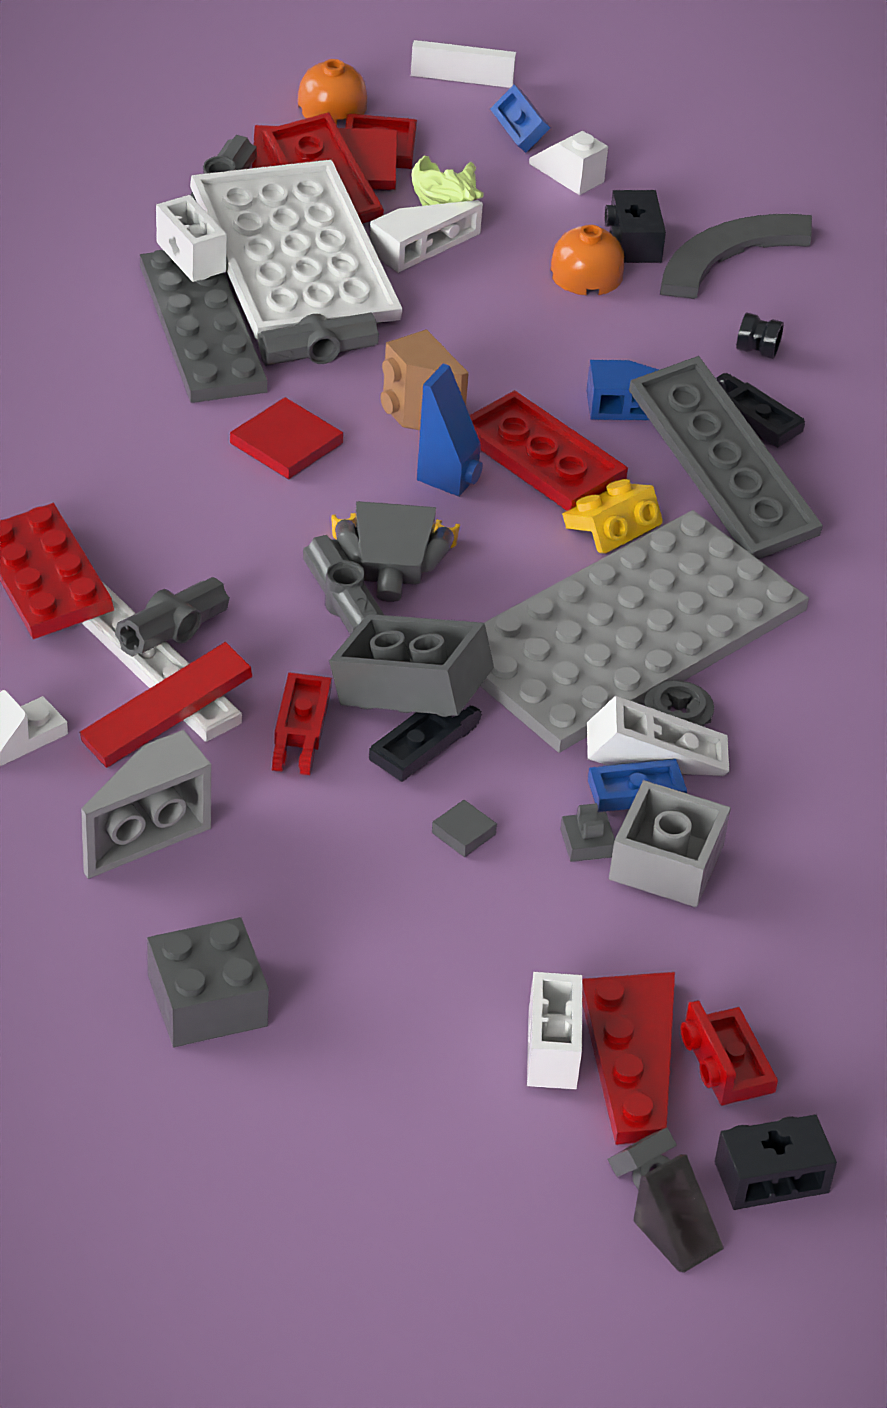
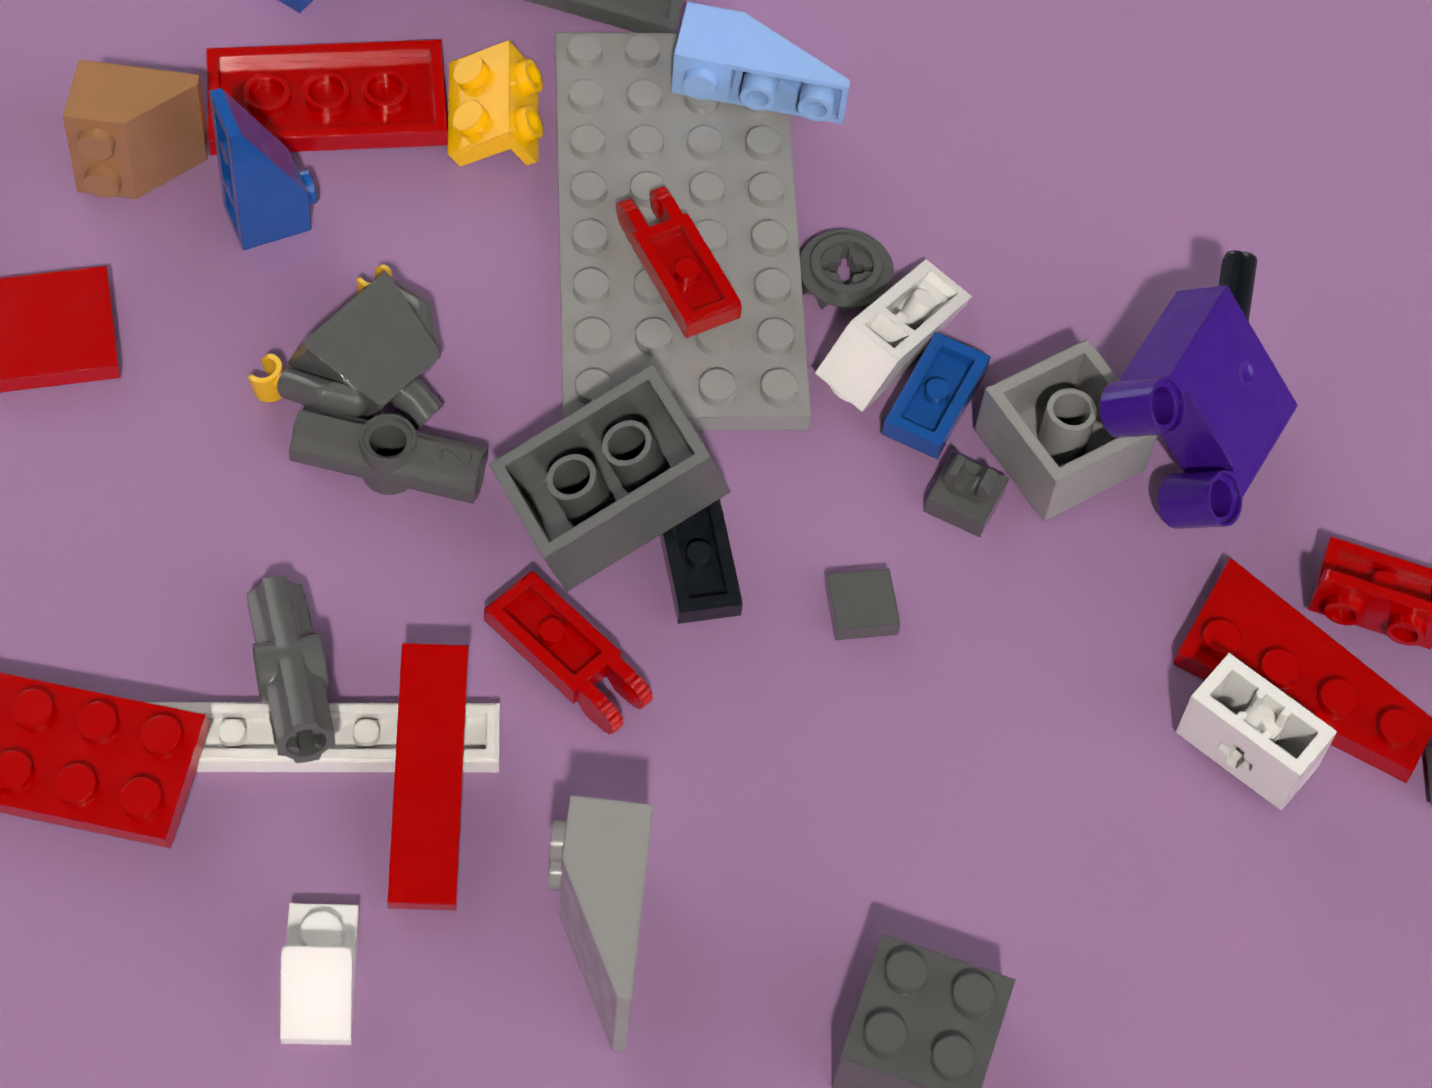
camera: 55 degrees left, 15 degrees up
(585, 625) = (680, 264): none -> red hinge
(748, 574) = (746, 64): none -> light blue slope
(758, 879) = (1207, 394): none -> dark purple piece

